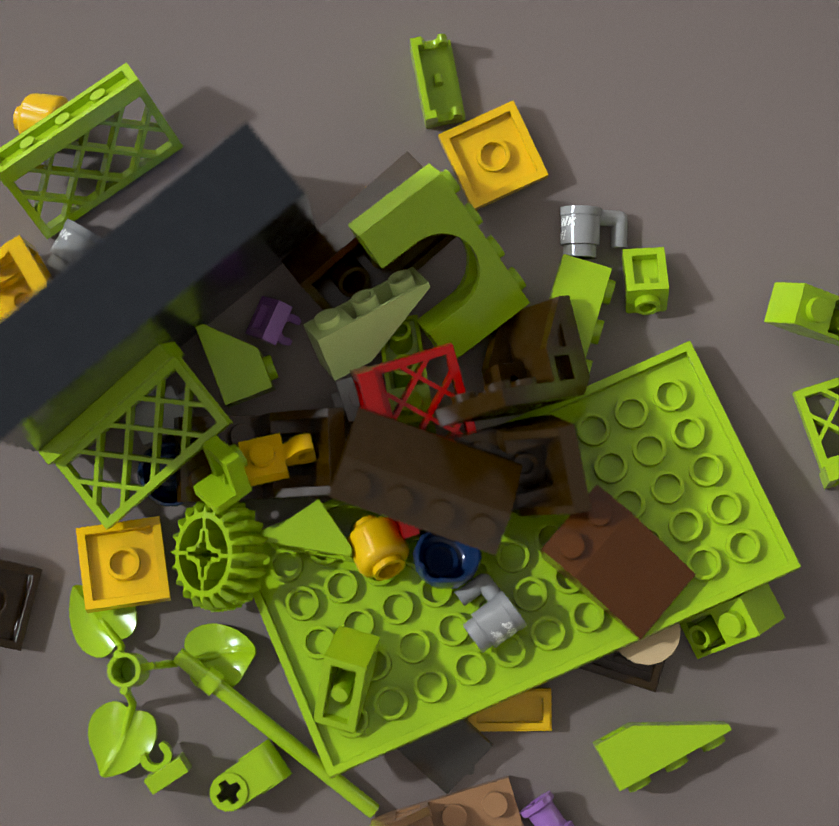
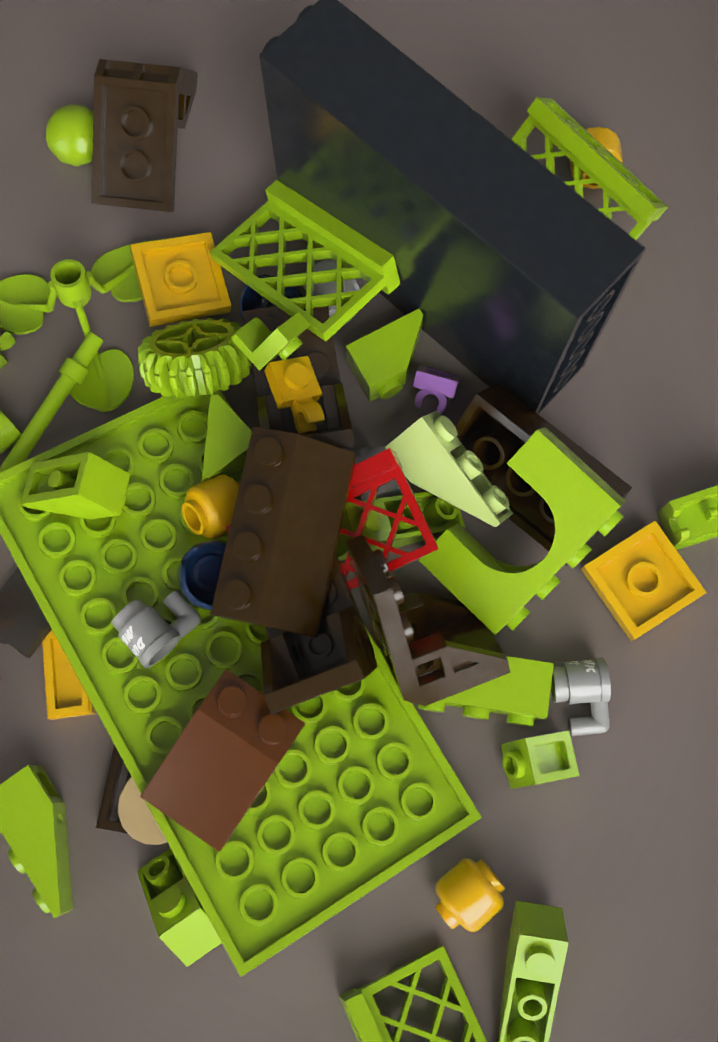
camera: 85 degrees right, 10 degrees down
(754, 361) = (469, 895): none -> yellow head

